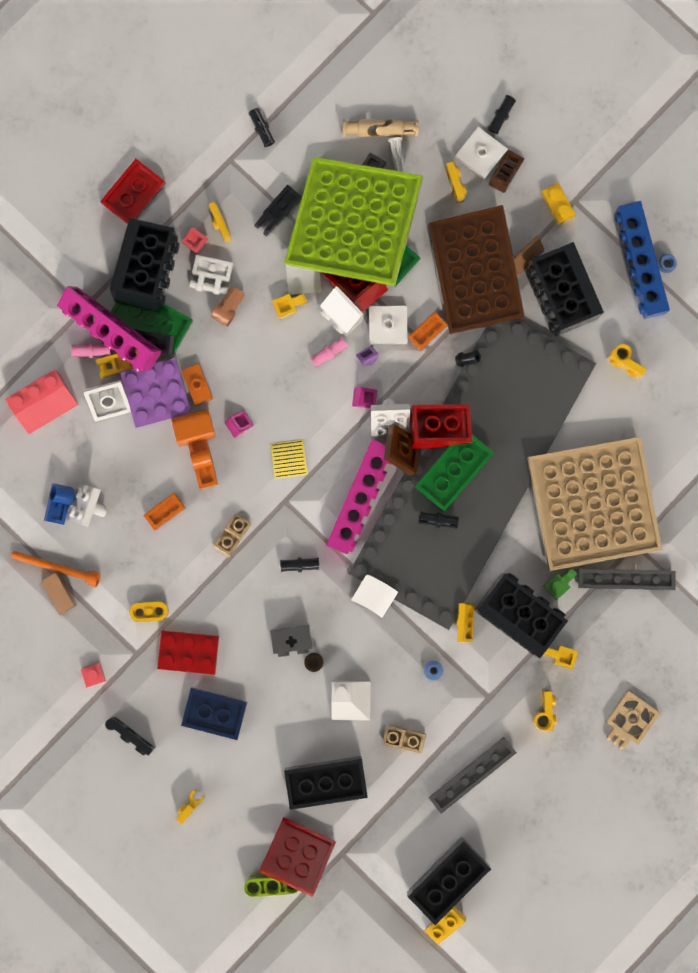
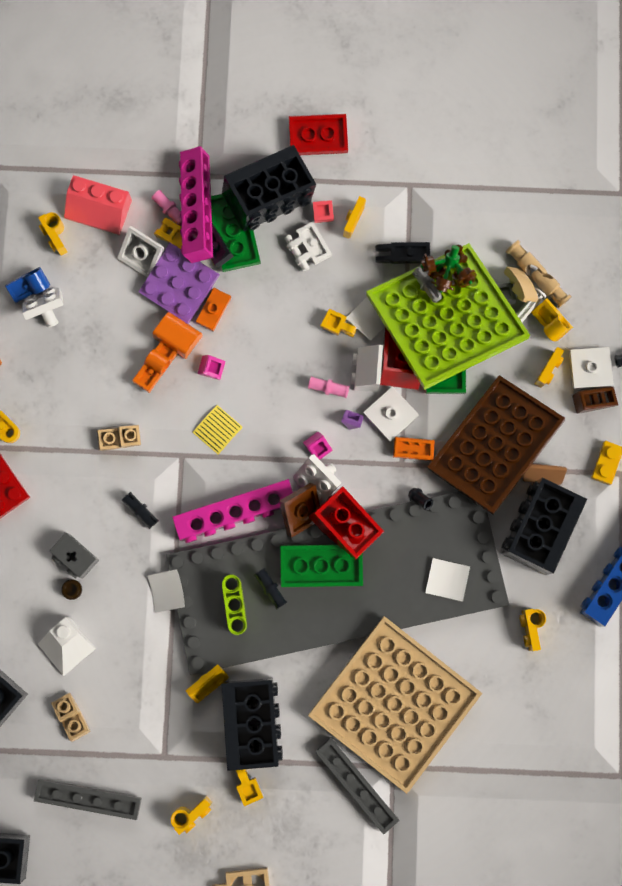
camera: 45 degrees right, 5 degrees down
(44, 456) = (53, 232): none -> yellow plate
(164, 511) = (92, 370): orange plate -> none
(225, 311) = (291, 280): nougat piece -> none
(257, 117) = (451, 196): black pin -> none
(319, 214) = (426, 285): none -> light grey axle
(335, 186) = (452, 259): none -> reddish brown plant
(381, 147) = (522, 284): none -> tan slope
(424, 149) = (553, 321): none -> yellow plate
(428, 666) = (153, 691): medium blue plate -> none
(437, 555) = (239, 614): none -> lime beam
(541, 390) = (447, 579): none -> white sticker
(558, 585) = (303, 733): bright green plate -> none

